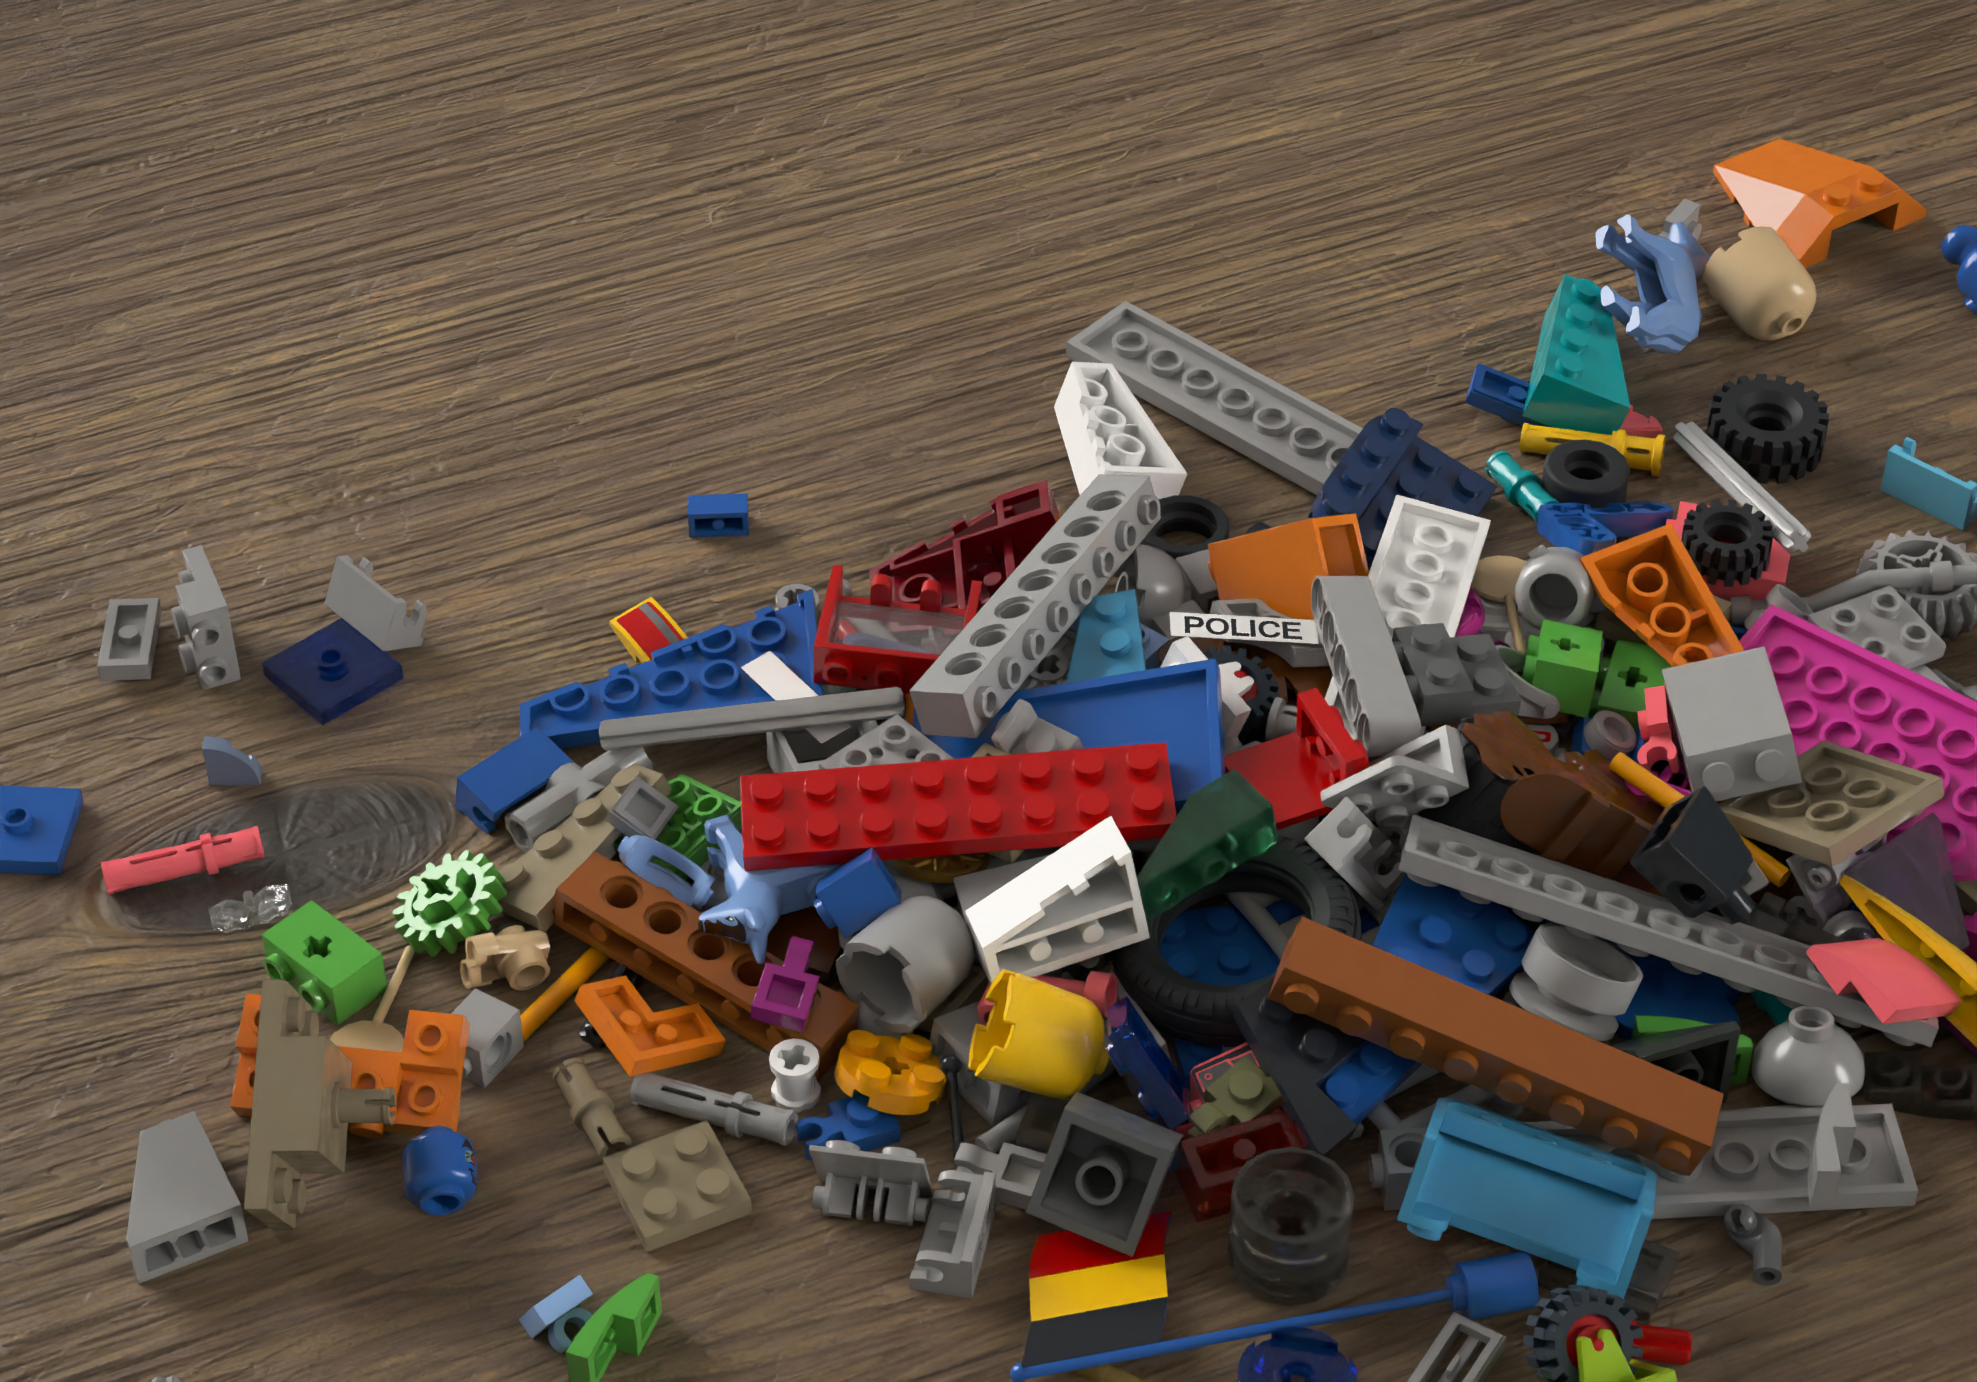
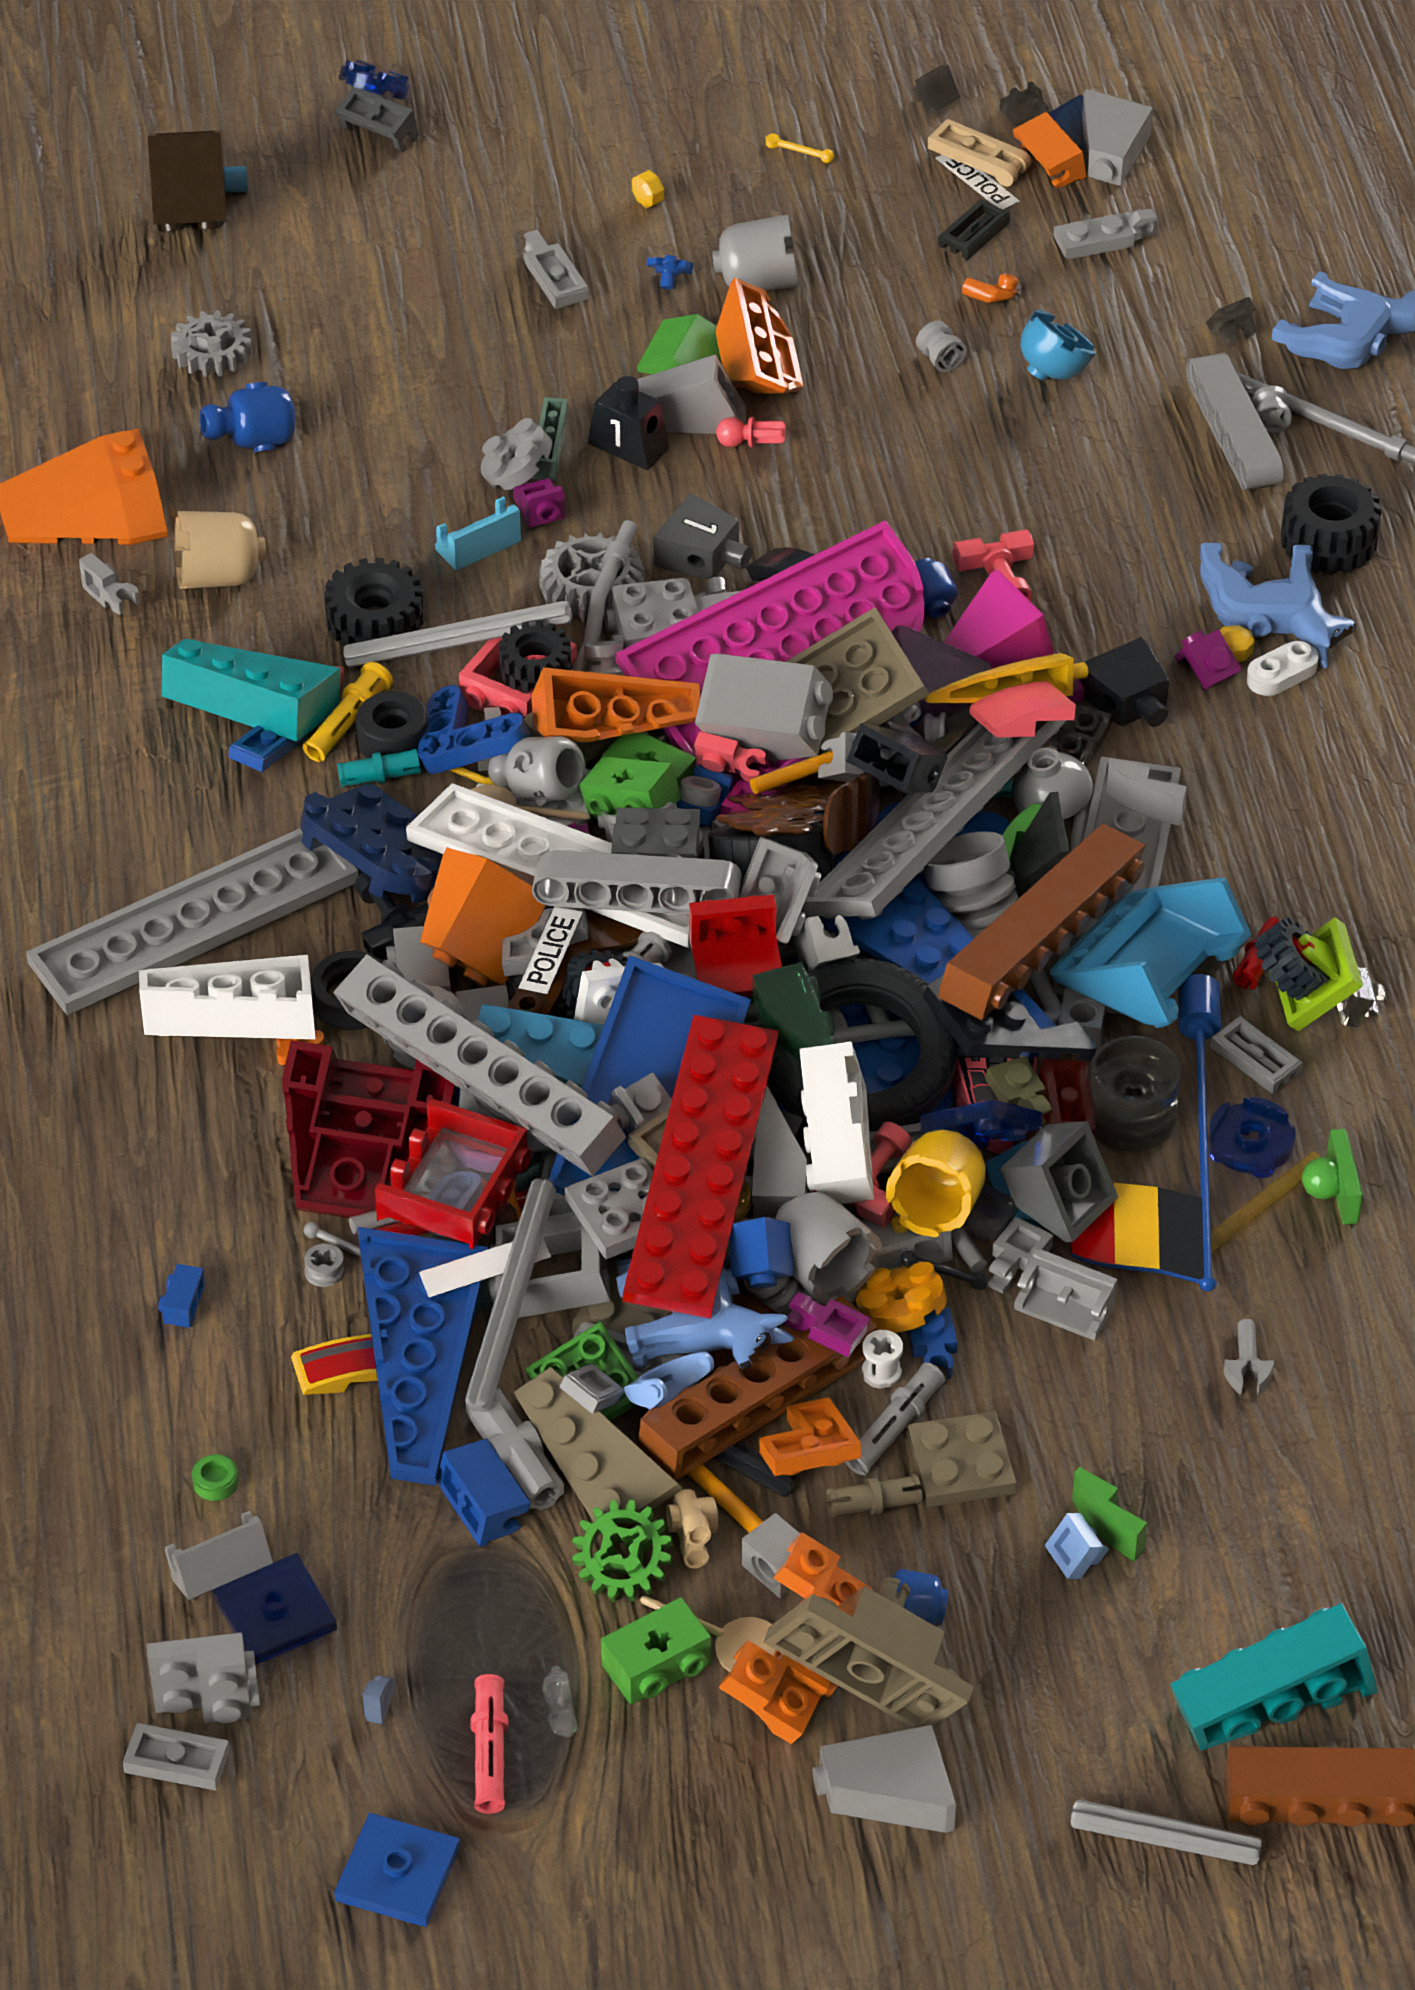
camera: 75 degrees left, 5 degrees up
(493, 593) = (215, 1477): none -> bright green tile
(895, 1170) = (1015, 1331): light grey hinge -> none
(1665, 281) = (194, 605): medium blue animal -> none
(1759, 1239) = (1190, 863): dark grey arm -> none

